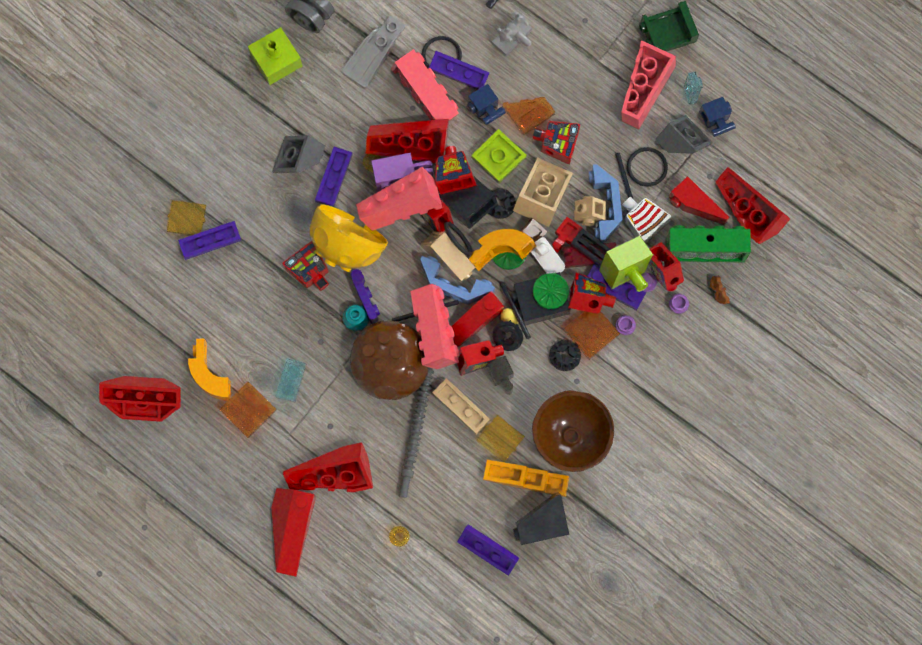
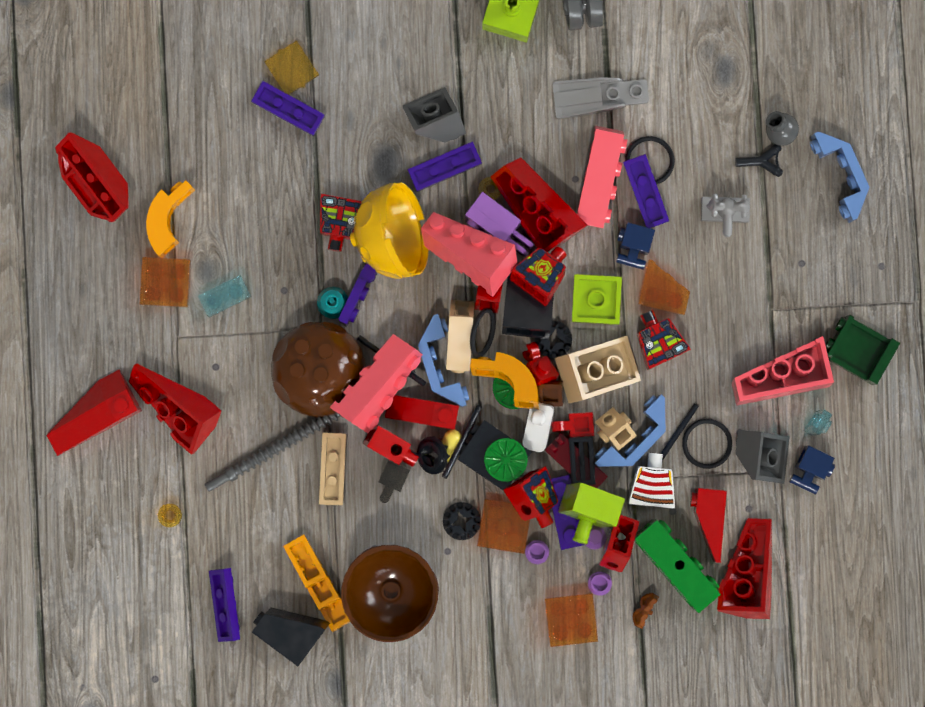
camera: 50 degrees right, 10 degrees up
(500, 438) = (335, 528): clear yellow piece -> none
(514, 222) = (541, 368): none -> red plate
(687, 340) = (571, 620): none -> clear orange plate

